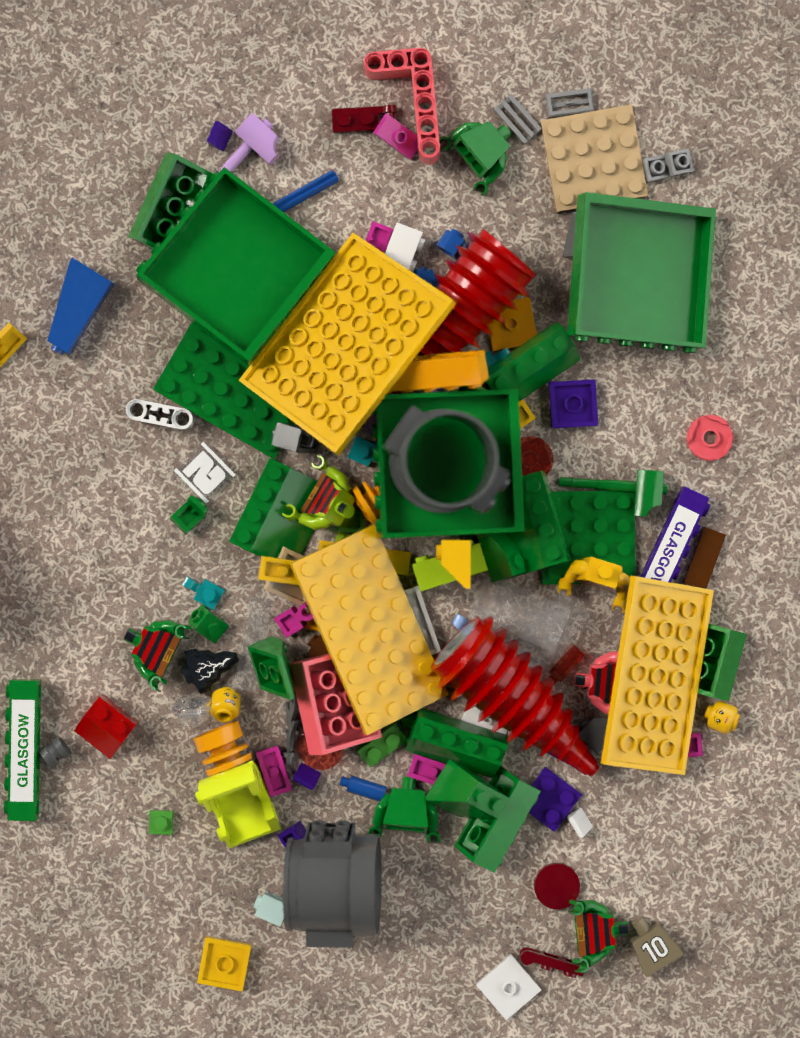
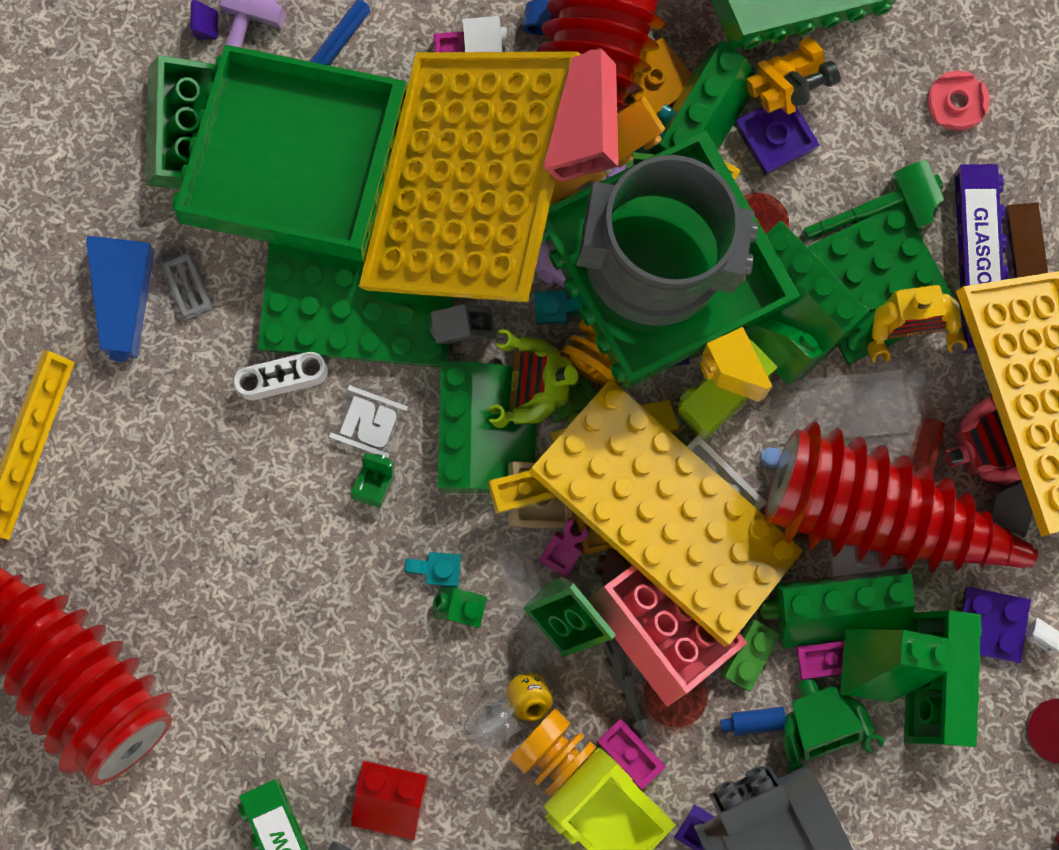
camera: 20 degrees left, 10 degrees down
(124, 340) = (196, 309): none -> light grey tile
(155, 649) = (408, 667): torso -> none
(206, 667) = (483, 662): black rock -> none
(306, 776) = (675, 740): dark purple slope -> none
(434, 353) = (586, 121): none -> coral slope
(601, 371) = (790, 78): none -> light orange hips

